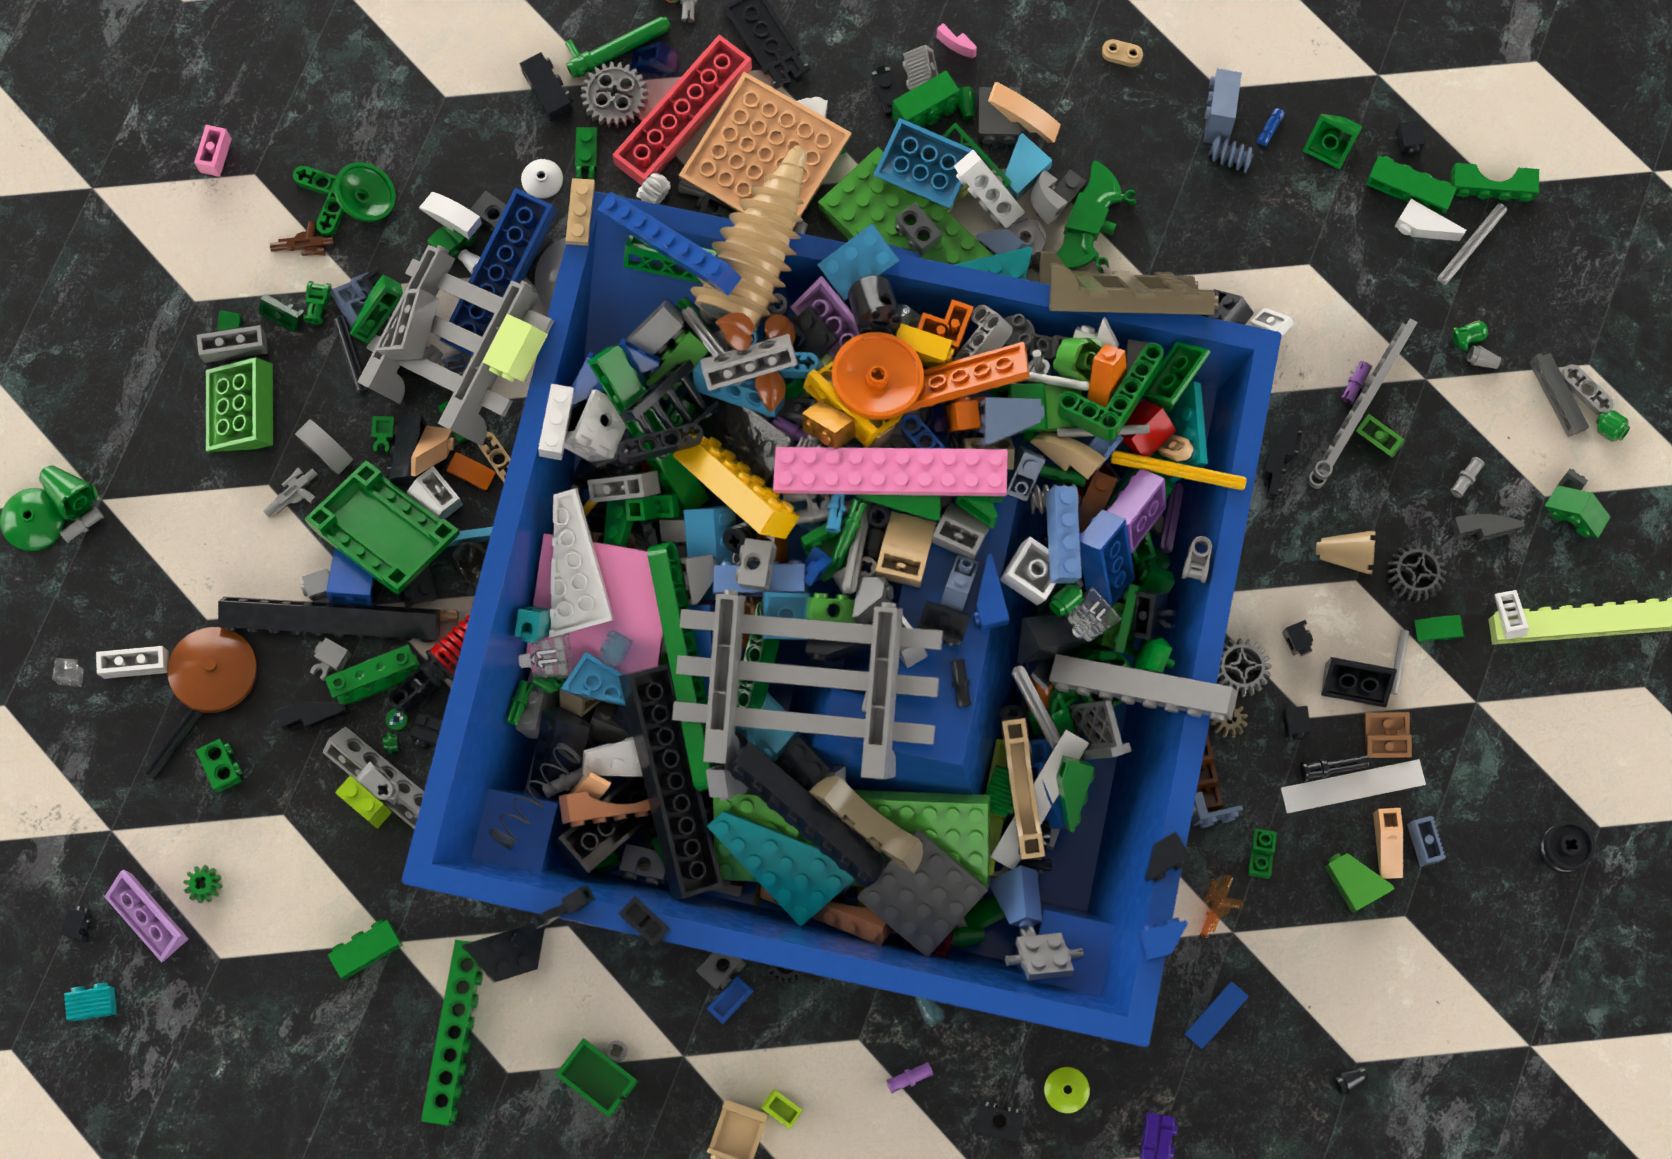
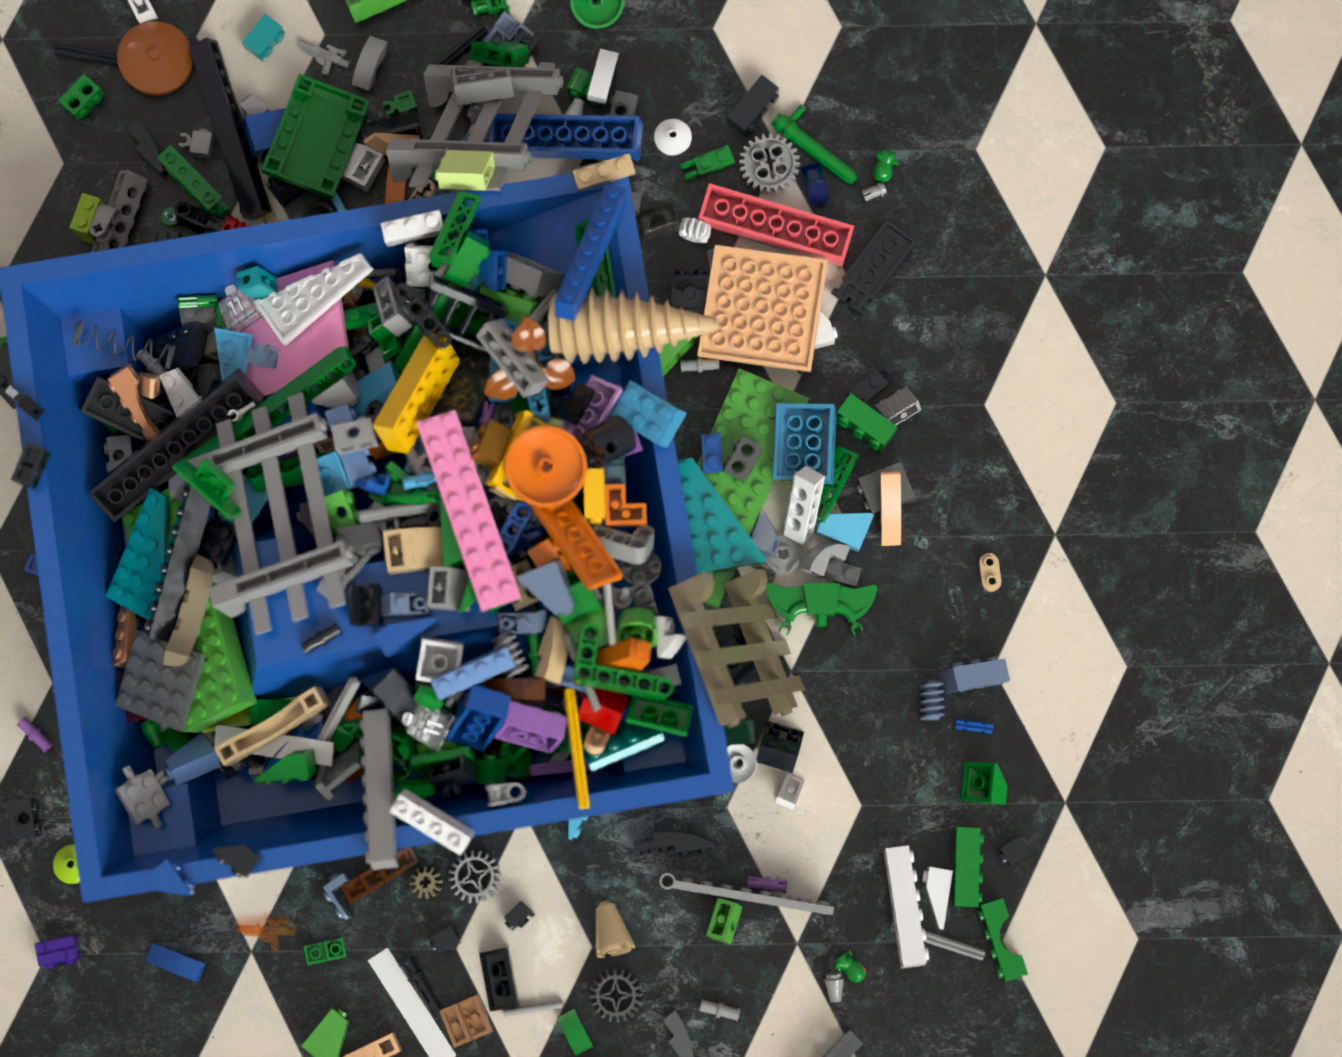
camera: 70 degrees right, 5 degrees up
(243, 546) = (263, 37): none -> teal brick
(390, 743) = (148, 219): green plate -> none
(577, 383) = (451, 226): none -> green fence
(670, 687) = (239, 413): none -> white hand
(743, 737) = (211, 484): none -> green bracket
(782, 310) = (589, 370): light grey bush -> none
(959, 44) = (937, 431): bright pink slope -> none
(966, 102) = (886, 456): green cone -> none
(1203, 639) = (432, 821): none -> white brick
(1430, 257) = (905, 907): none -> white brick

